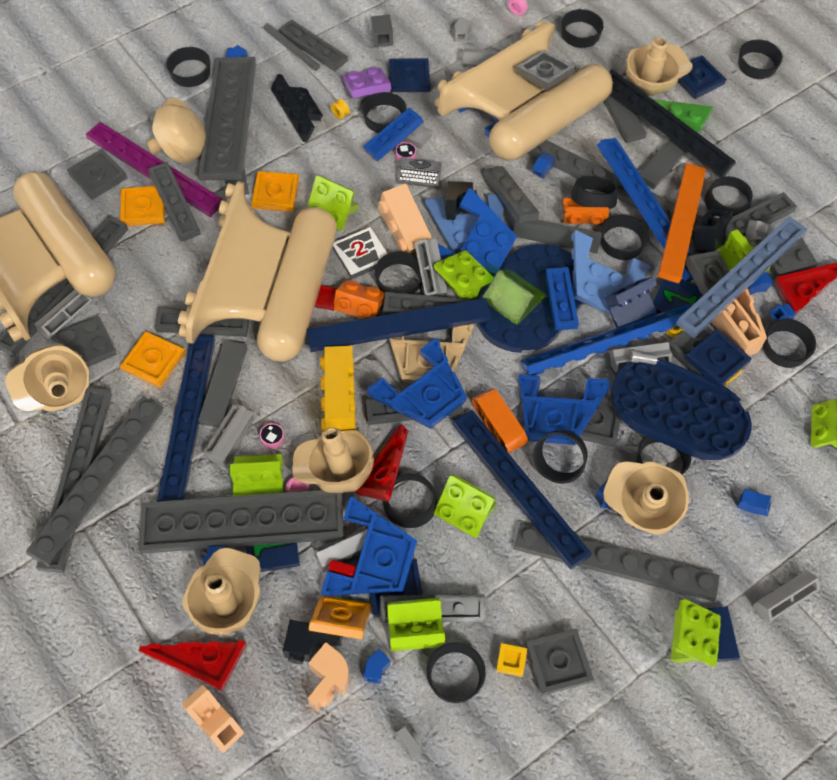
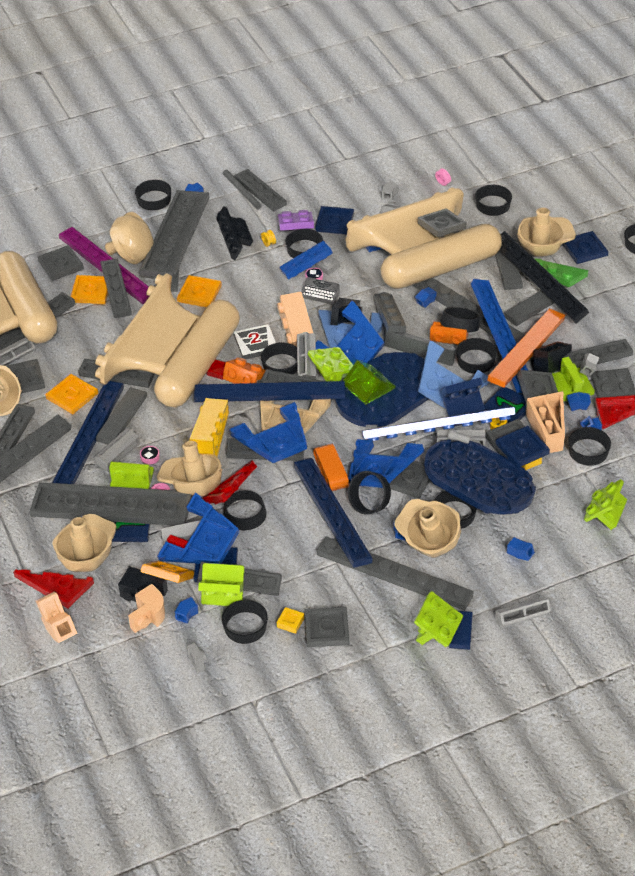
camera: 15 degrees right, 15 degrees down
(334, 199) = (244, 300): lime bracket -> none
(382, 31) = (320, 184): dark grey brick -> none
(464, 505) = (285, 516): lime bracket -> none
(561, 298) = (406, 389): blue plate -> none
(734, 182) = (579, 326): black tyre -> none
(741, 277) = (557, 387): sand blue plate -> none

